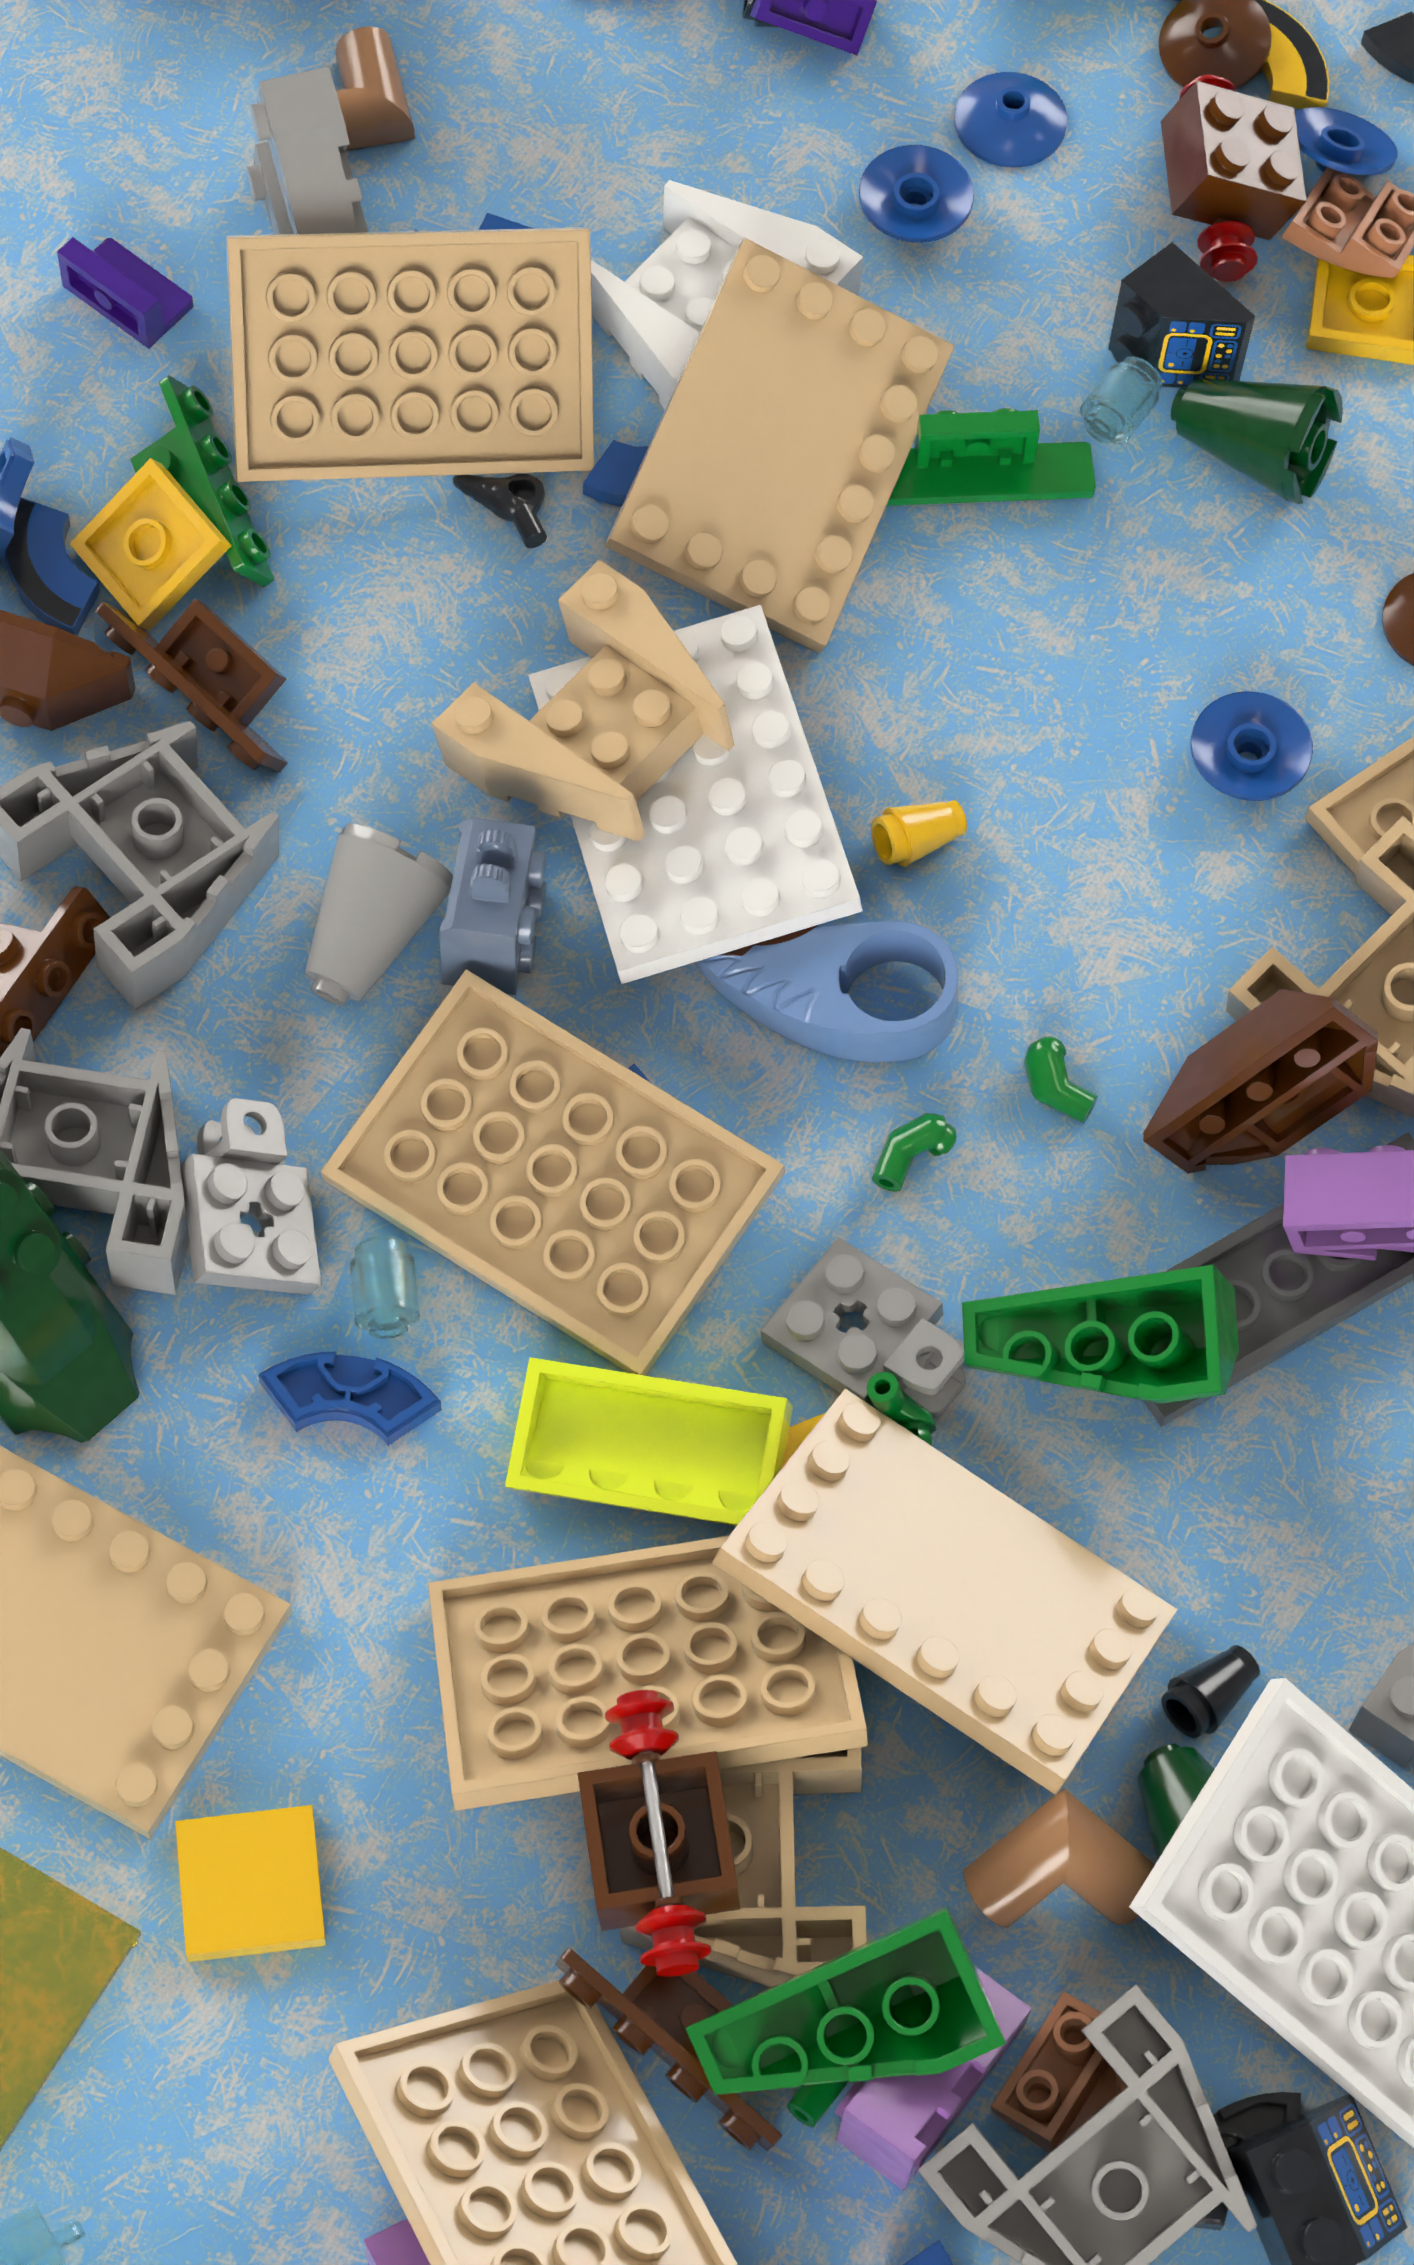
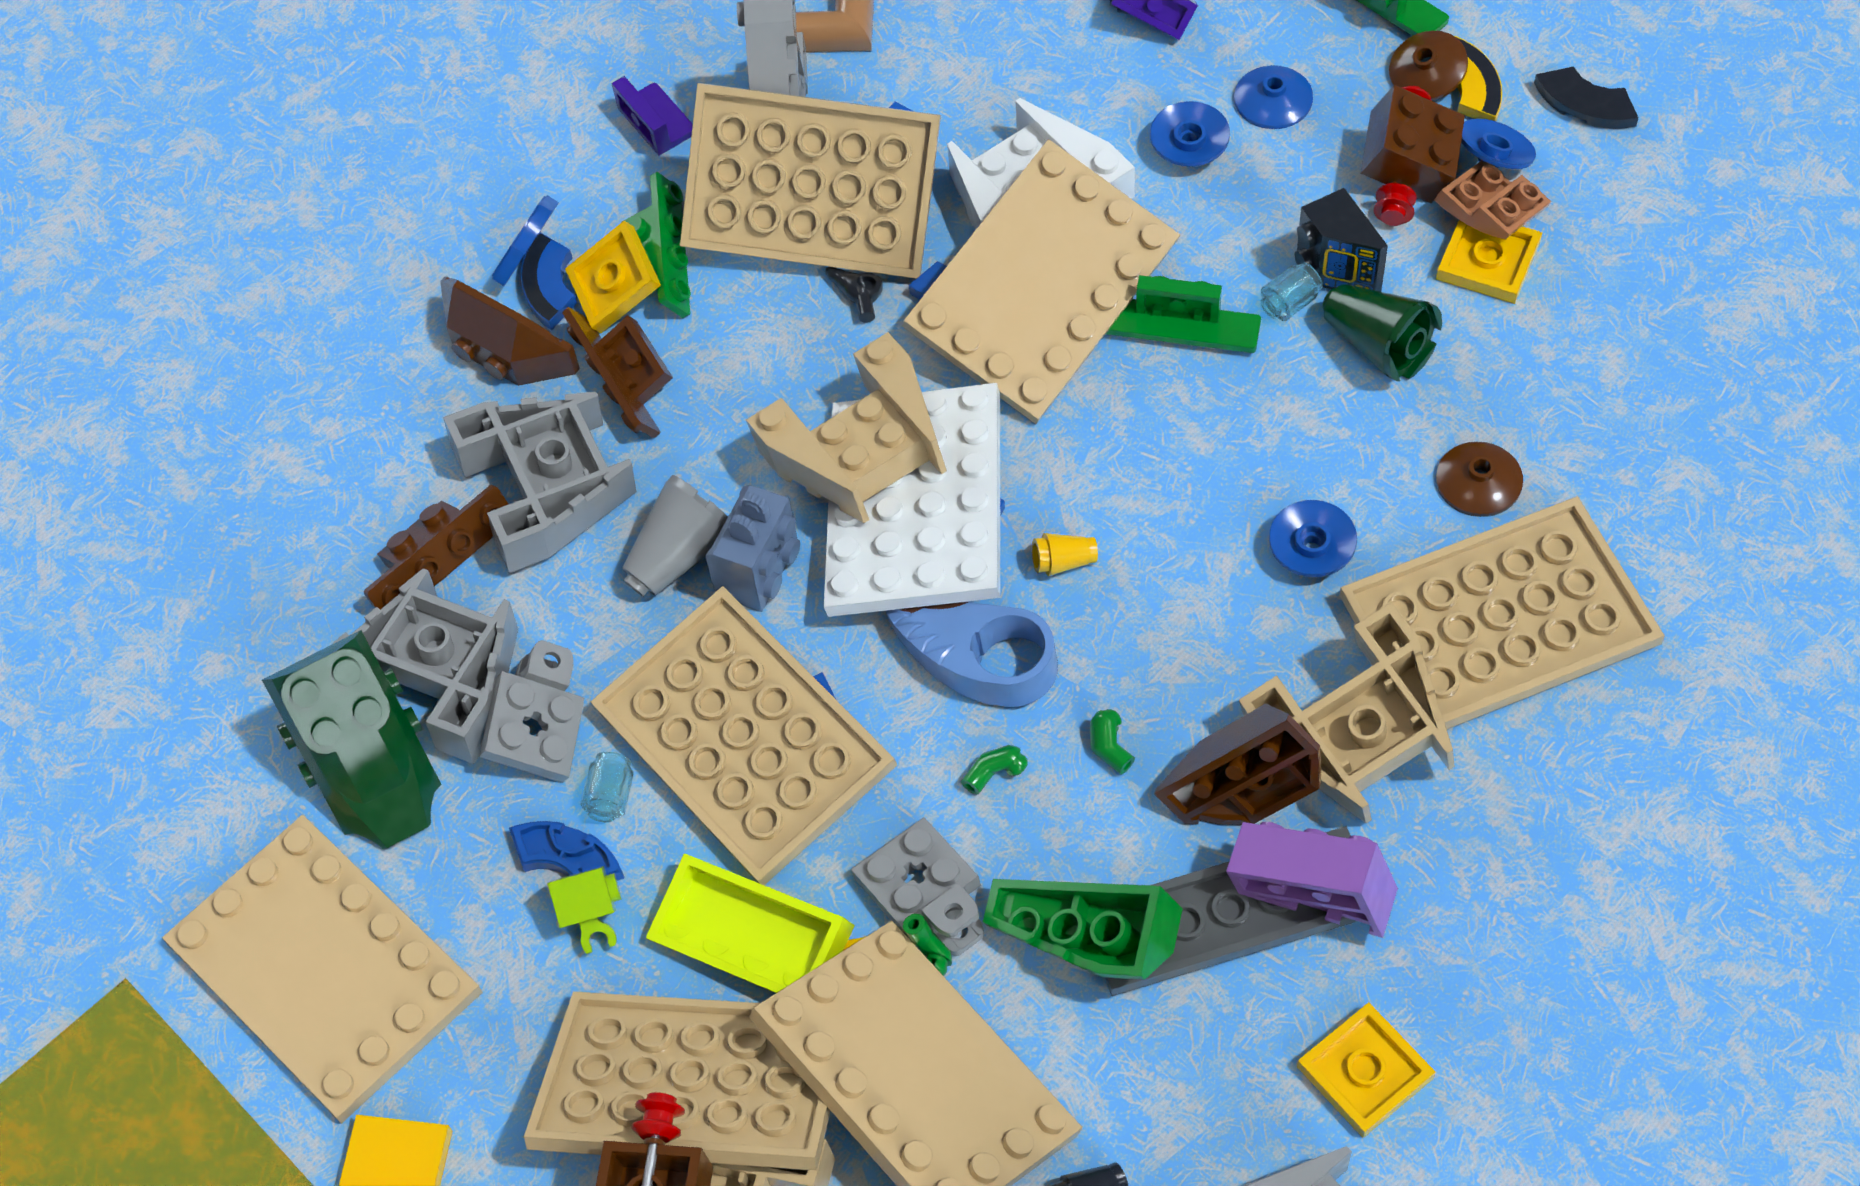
camera: 25 degrees right, 5 degrees down
(406, 1452) = (583, 899): none -> lime brick

